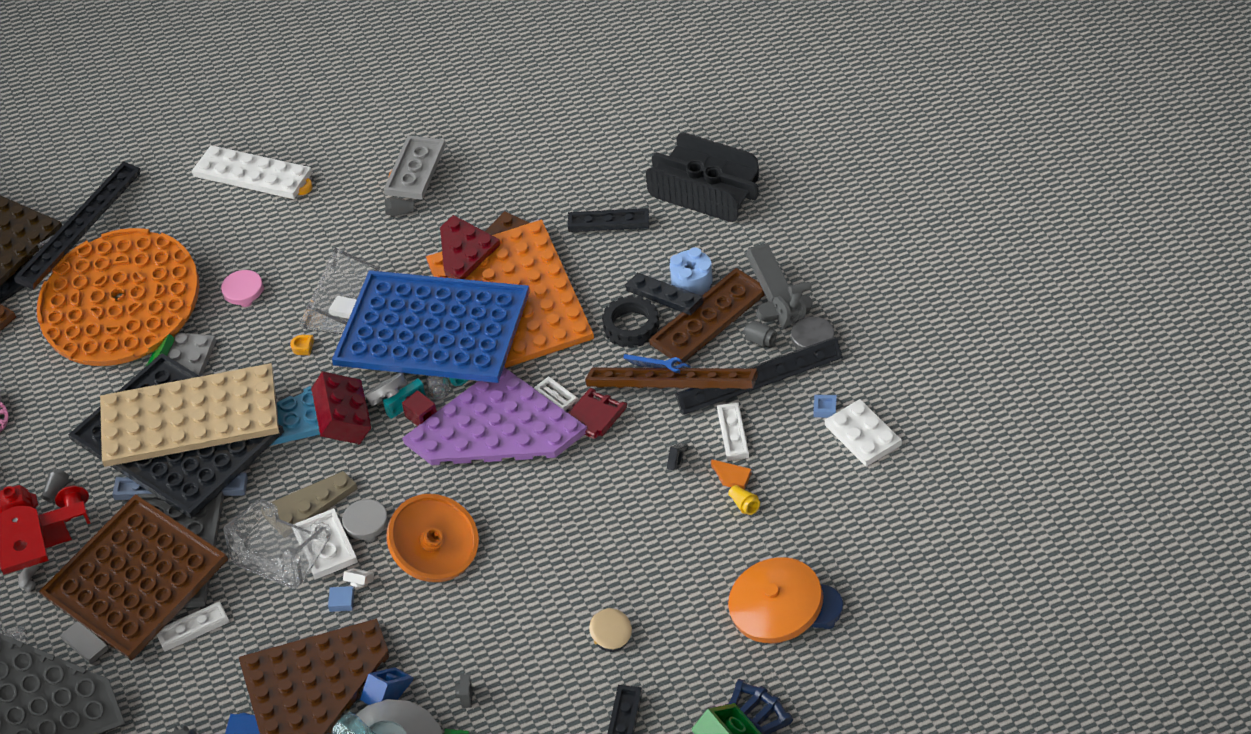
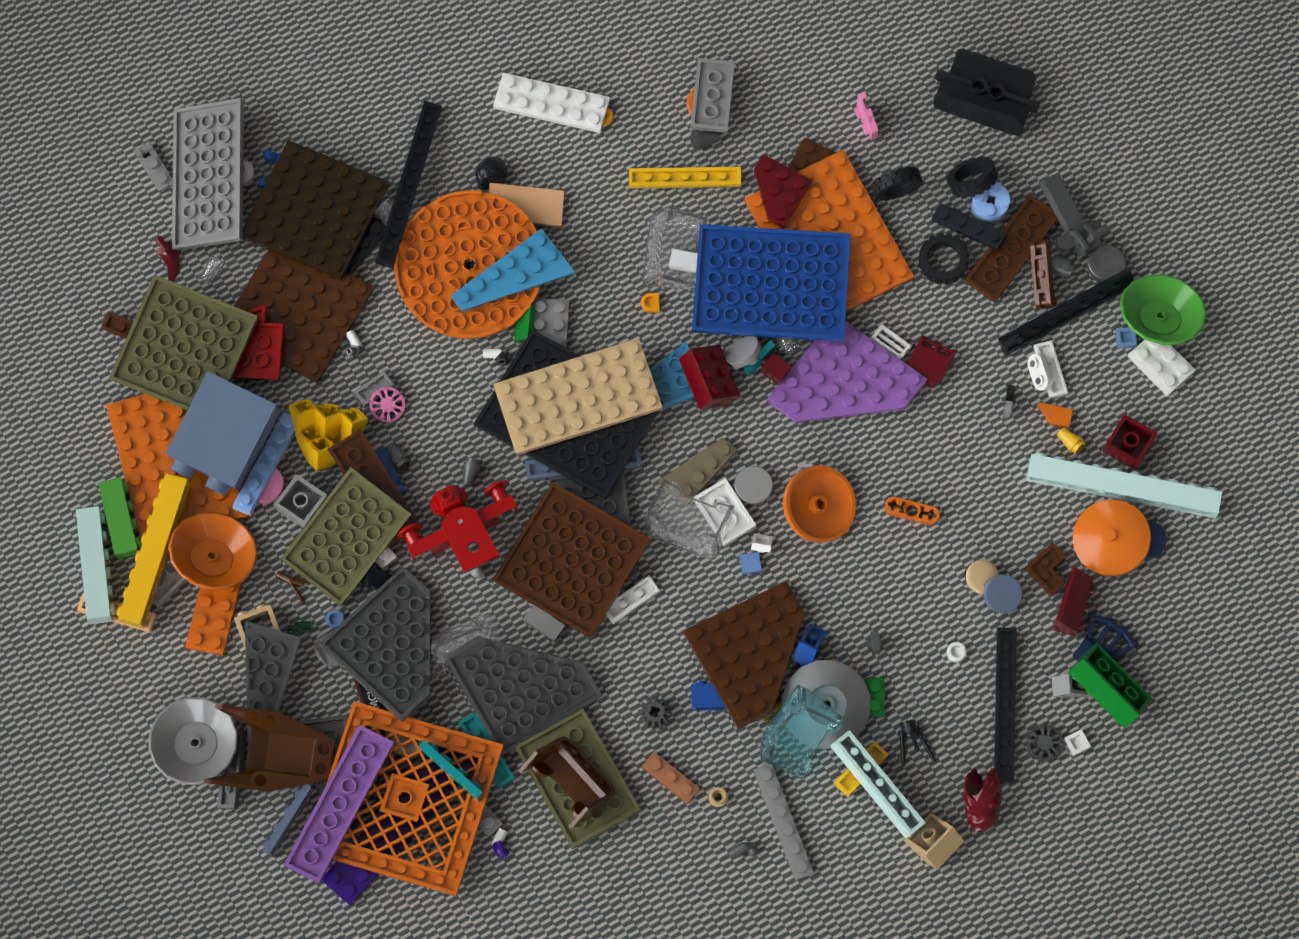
camera: 10 degrees left, 25 degrees up
(117, 379) = (497, 354): none -> arm
(163, 301) = (522, 269): none -> dark azure wing
(171, 222) = (490, 171): none -> black hair
(208, 253) = (541, 205): none -> light nougat tile
(242, 287) = (580, 243): bright pink tile -> none
(369, 237) = (685, 177): none -> yellow plate
(548, 566) = (927, 509): none -> orange beam
(564, 711) = (956, 652): none -> white tile
(571, 191) = (862, 111): none -> bright pink wing
(590, 231) = (897, 183): none -> black tyre
(608, 220) = (903, 143): black plate -> none
(631, 647) = (1002, 593): none -> sand blue tile
(655, 363) = (979, 310): blue flag -> none
(664, 377) = (994, 325): reddish brown plate -> none
(673, 245) = (975, 186): none -> black tyre
(687, 628) = (1042, 569): none -> reddish brown plate
(715, 662) = (1074, 603): none -> dark red slope
(718, 430) = (1039, 370): none -> white plate
(736, 335) = (1042, 274): none -> reddish brown plate
(811, 502) = (1130, 442): none -> dark red brick
(817, 551) = (1124, 485): none -> light aqua brick
(867, 373) = (1166, 297): none -> bright green dish

